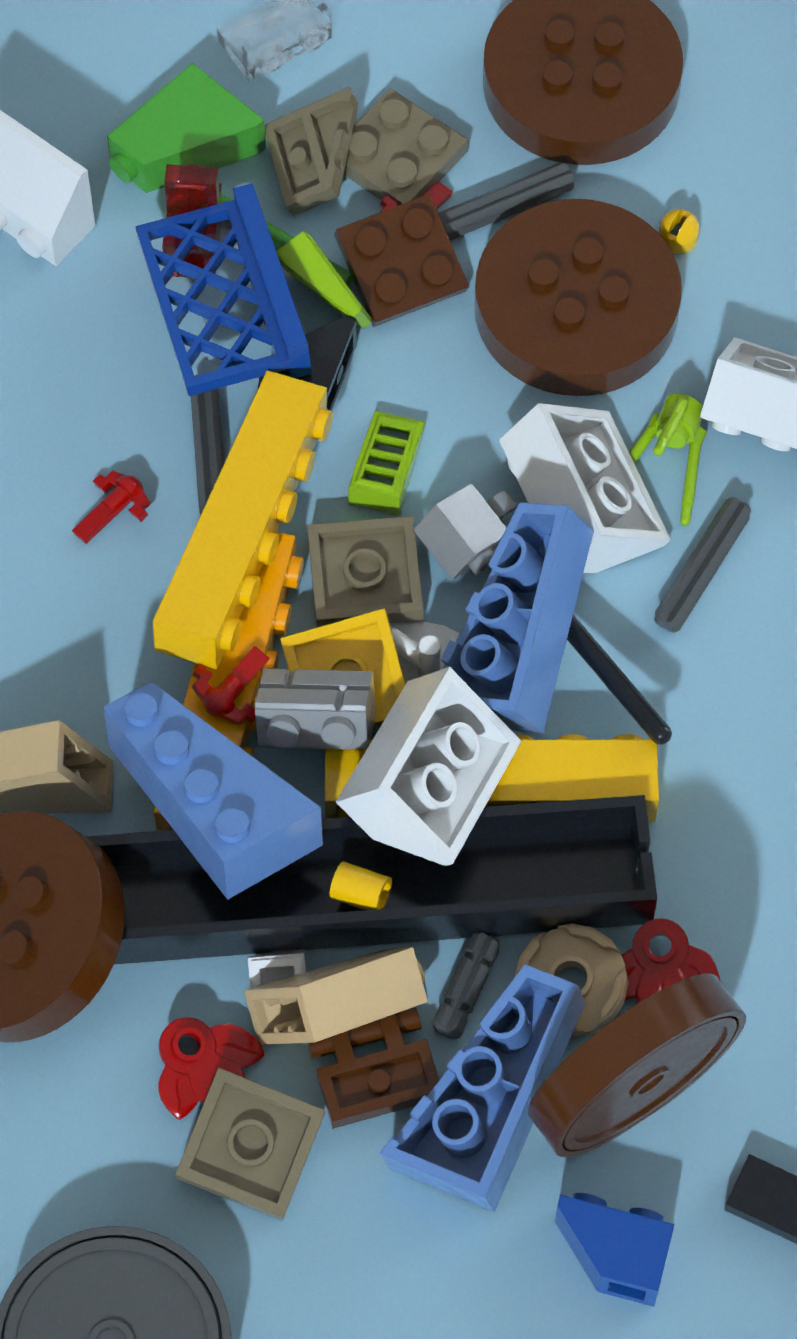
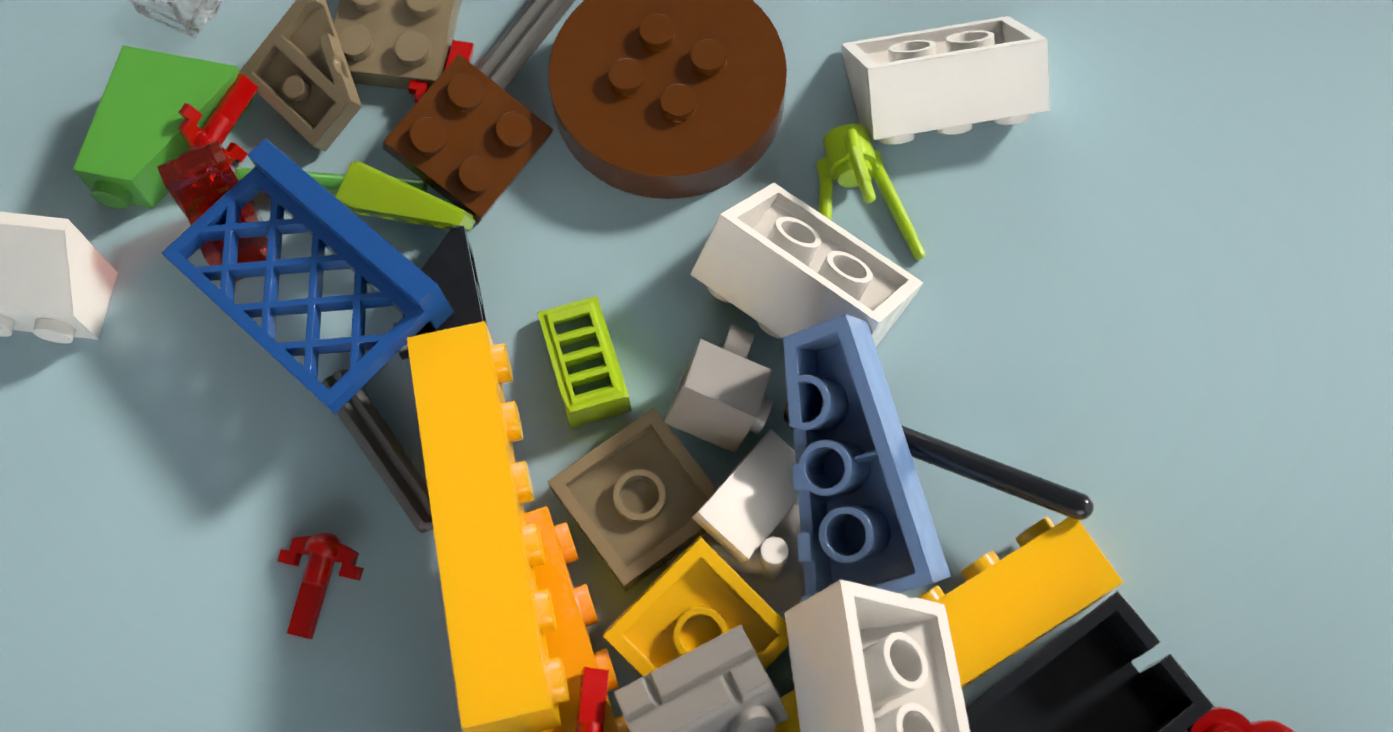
camera: 30 degrees left, 5 degrees up
(231, 153) = (221, 119): none -> red piece
(434, 608) = (751, 498): none -> white slope
(702, 565) = (970, 292): dark grey axle -> none

